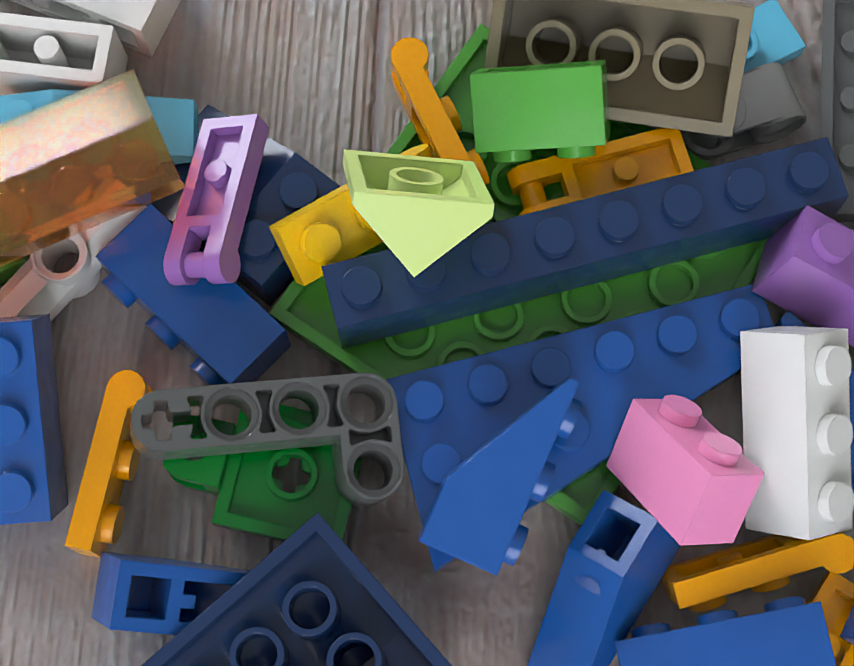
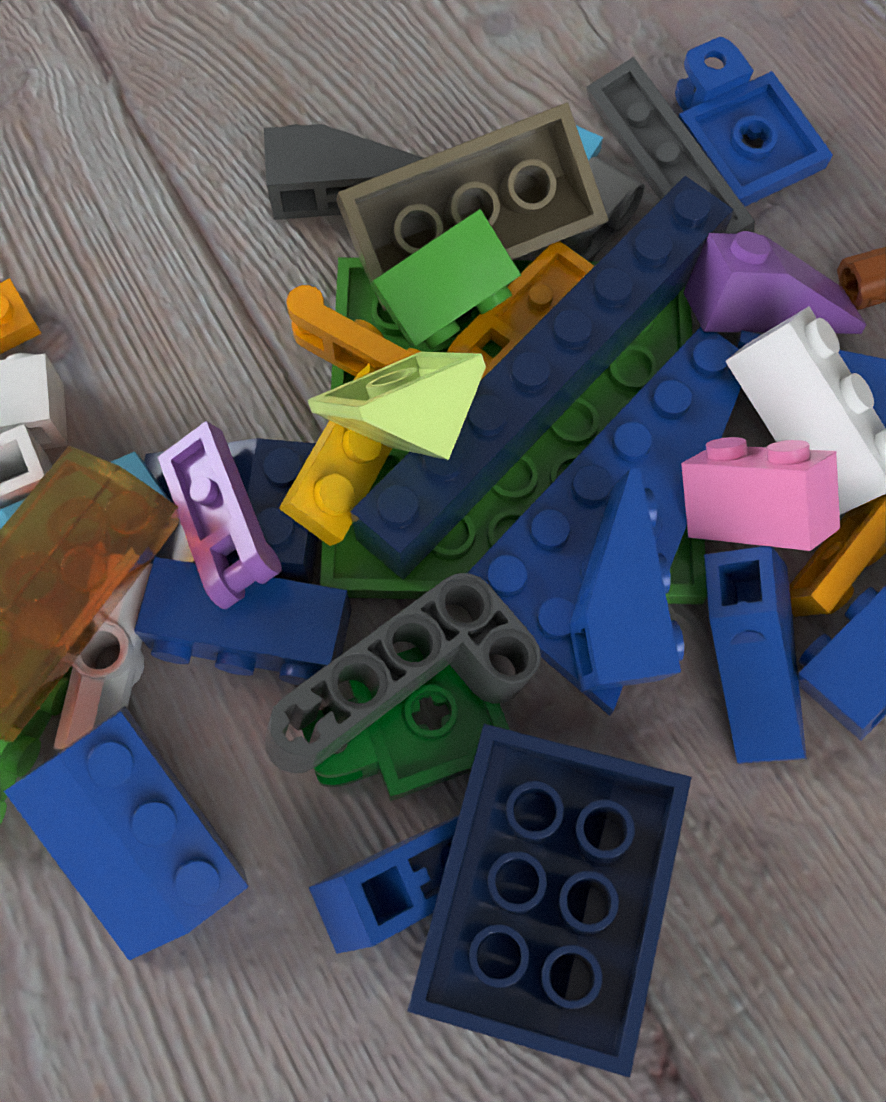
camera: 35 degrees left, 5 degrees down
(110, 462) = (263, 801): light orange plate -> none

